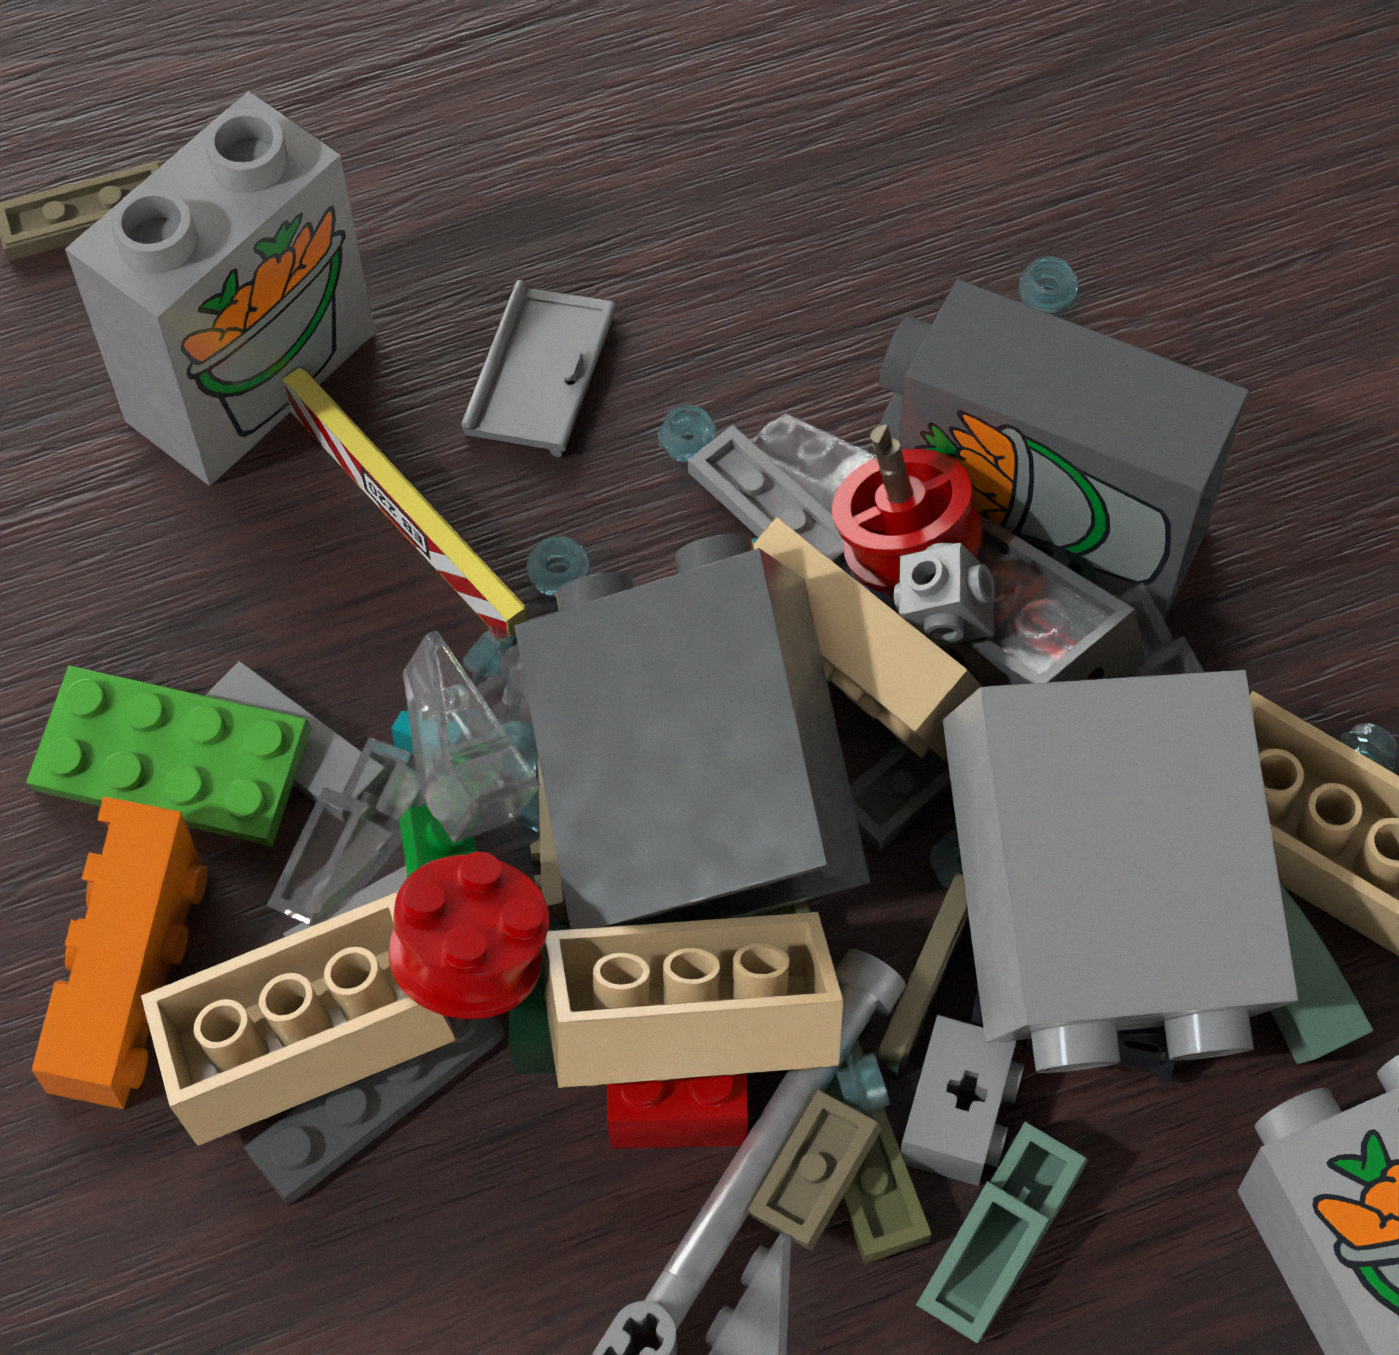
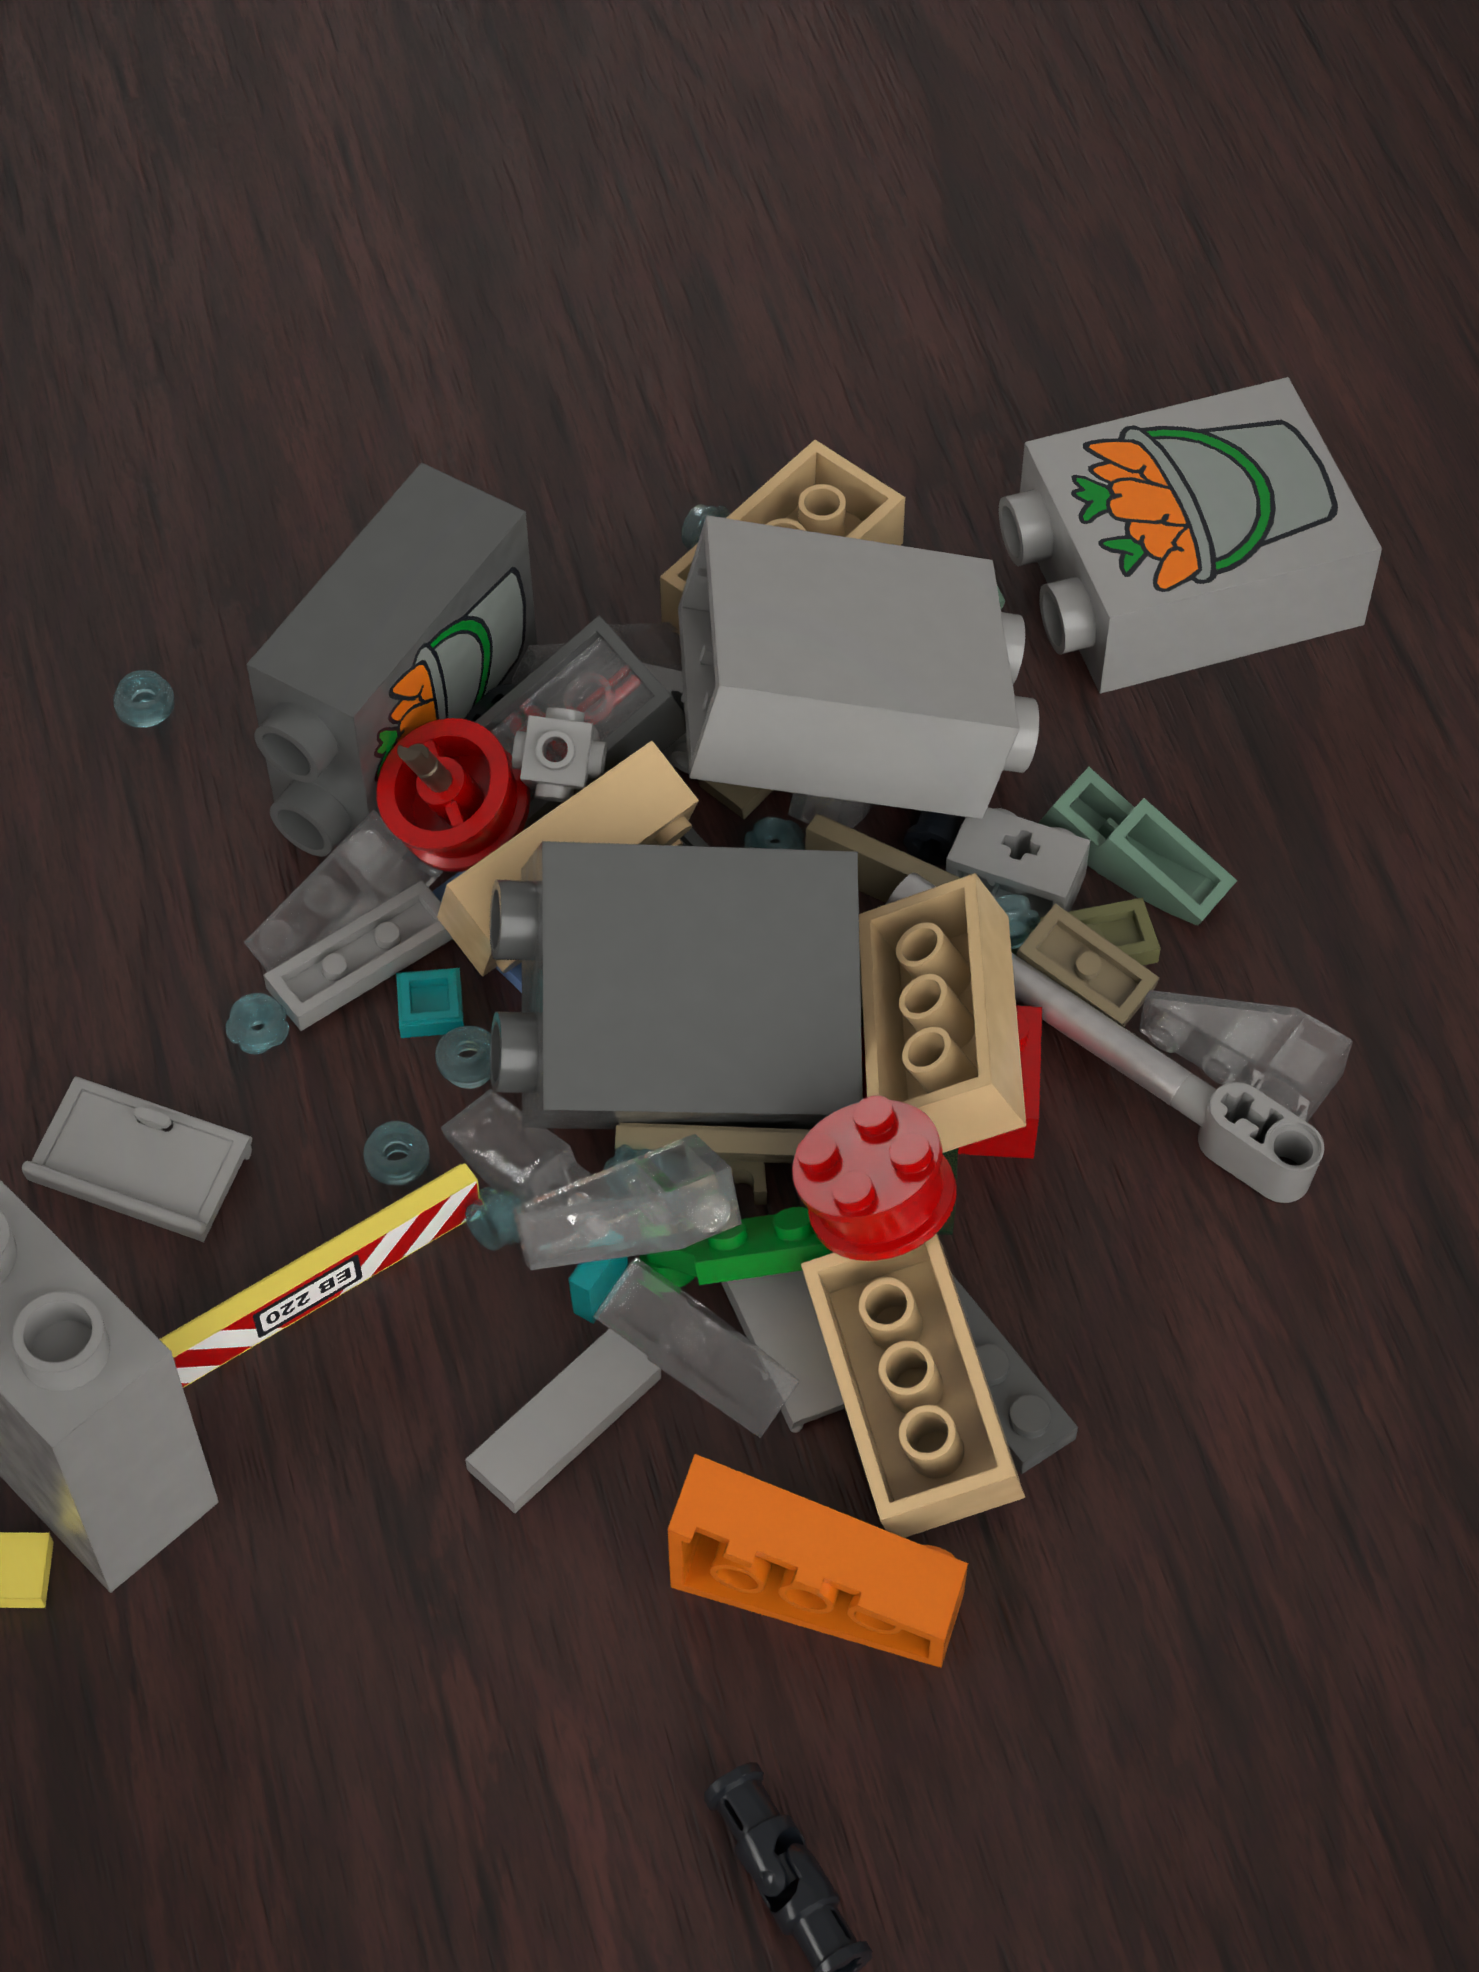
camera: 85 degrees left, 5 degrees down
(170, 750) = (572, 1530): bright green plate -> none

